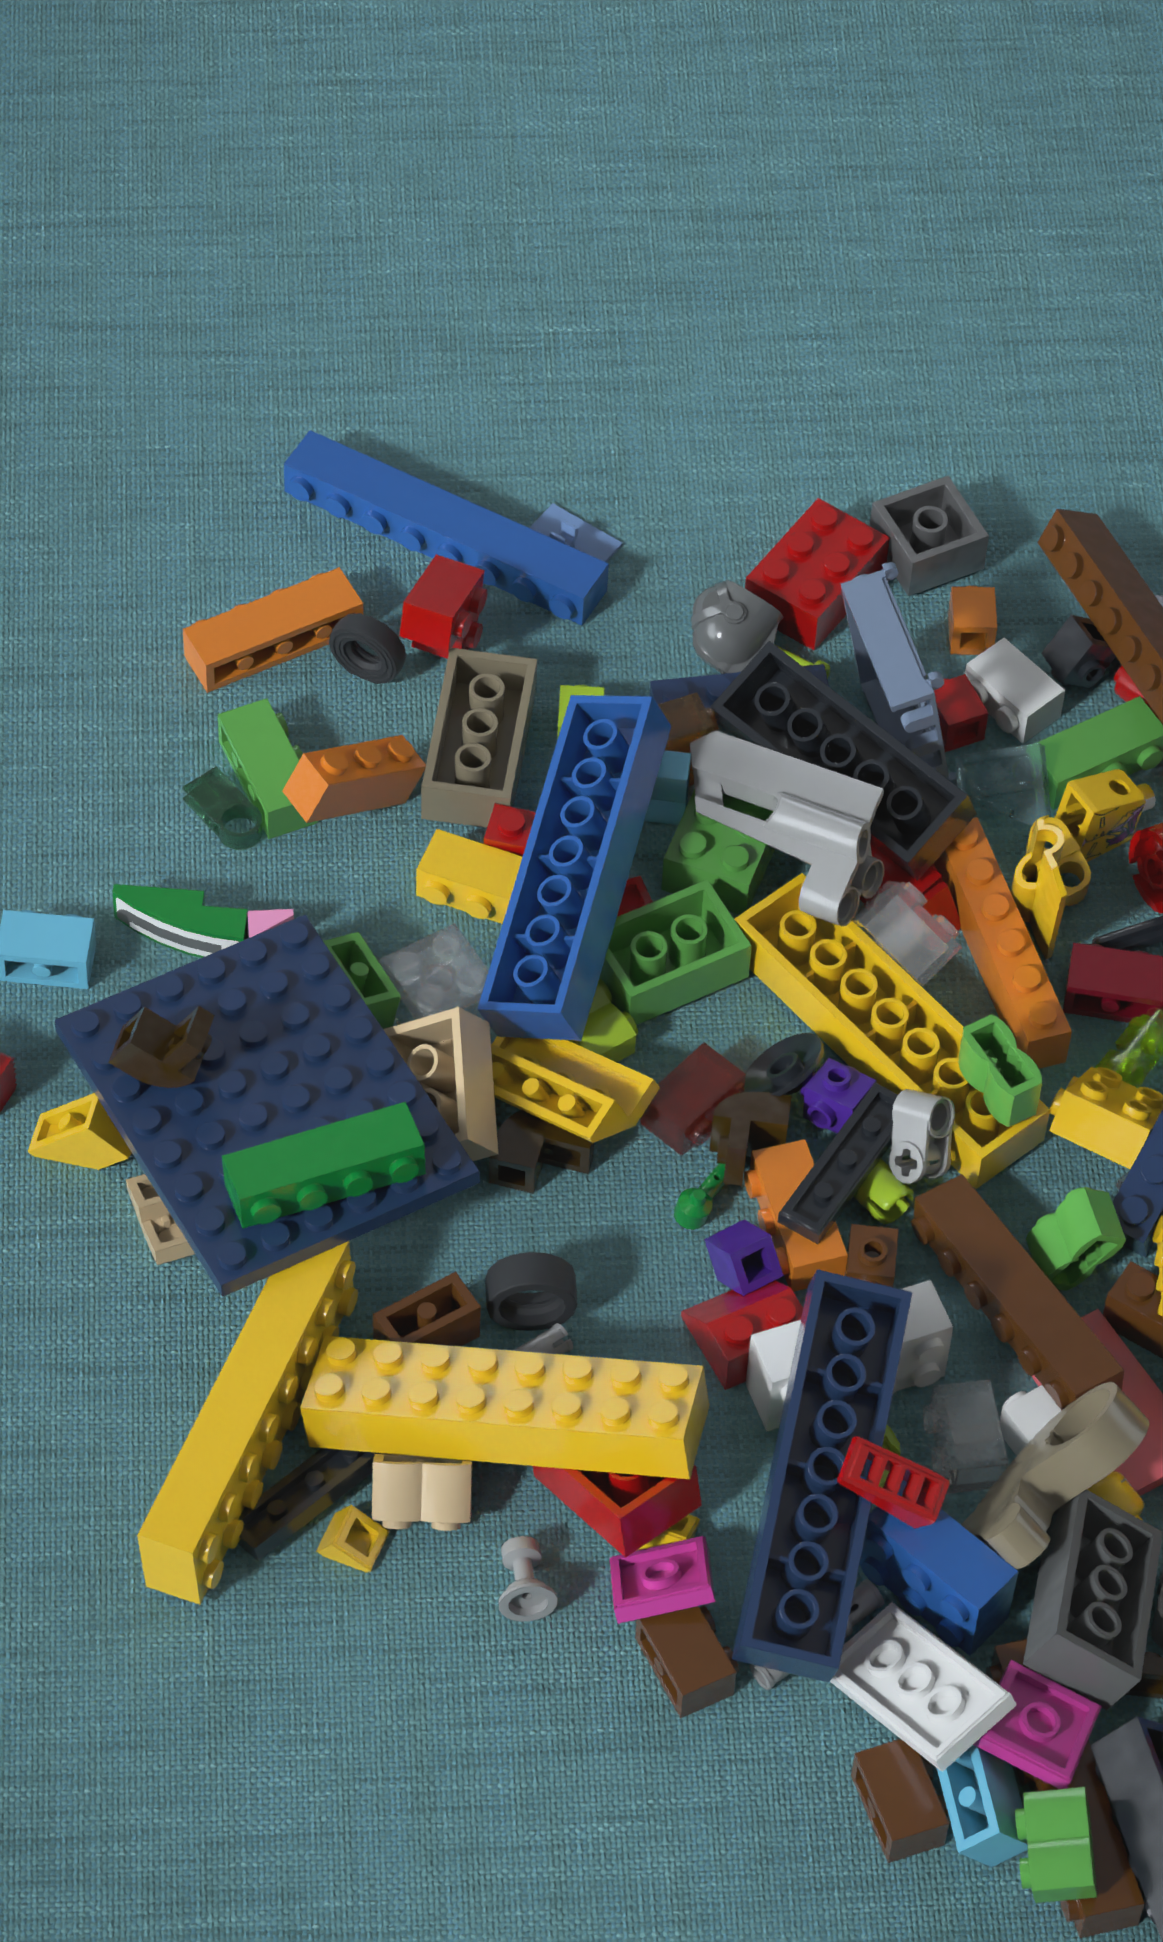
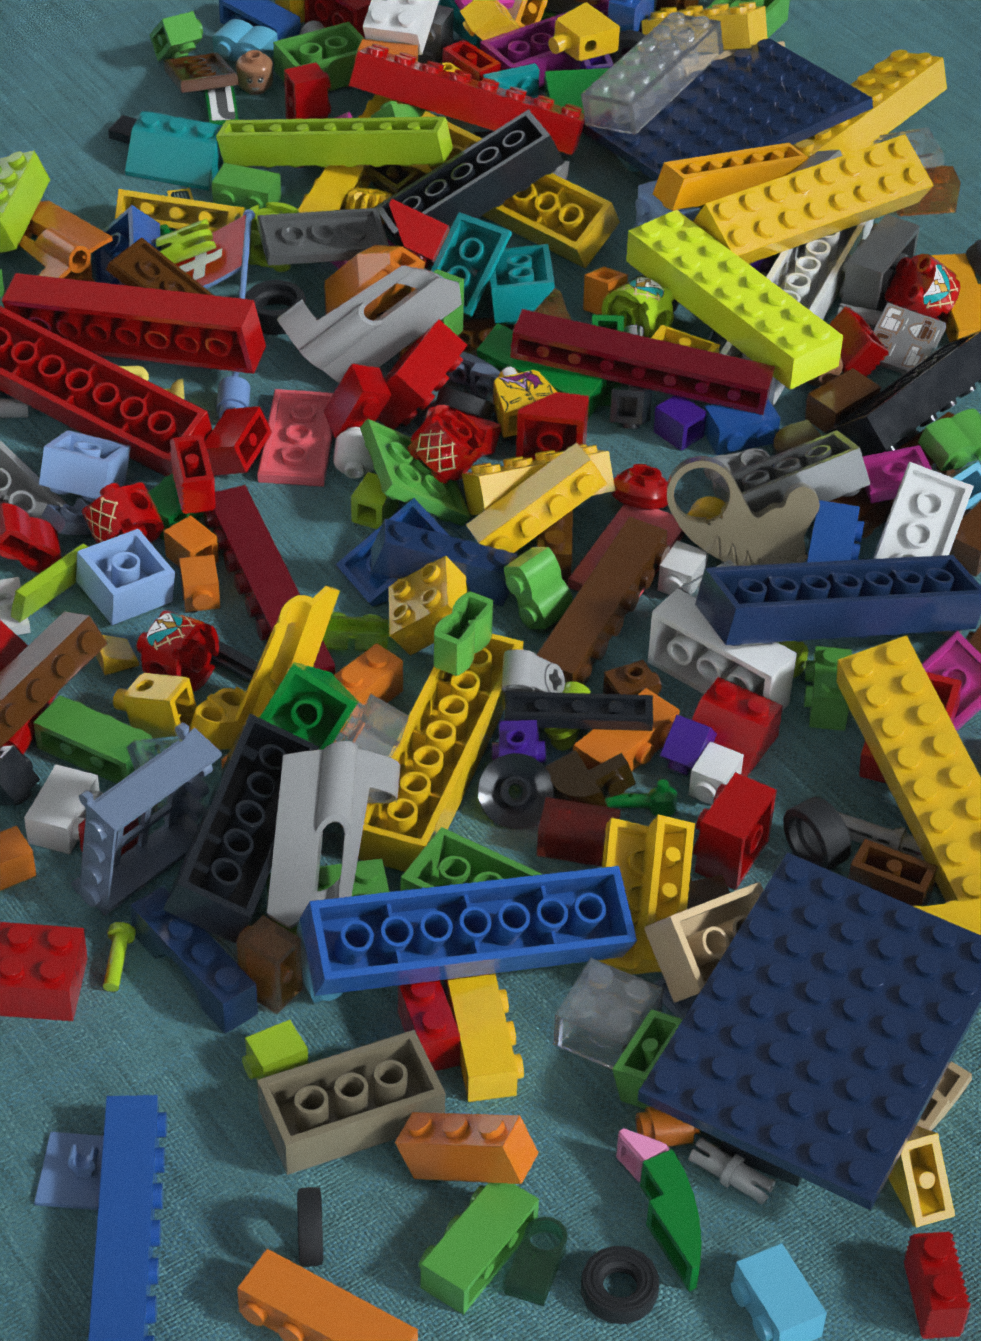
camera: 120 degrees left, 10 degrees down
(153, 830) = (619, 1309): none -> black tyre
(160, 1051) = (859, 1072): dark brown brick -> none
(324, 1165) = (877, 917): green brick -> none
(445, 607) = (245, 1168): red brick -> none
(585, 1214) = (734, 829): none -> red brick
(690, 1268) = (712, 769): none -> white brick
(732, 626) = (120, 988): dark grey helmet -> none
(737, 1452) = (823, 696): none -> bright green brick
(922, 1493) = (829, 546): red slope -> none
(975, 891) = (310, 705): none -> green slope

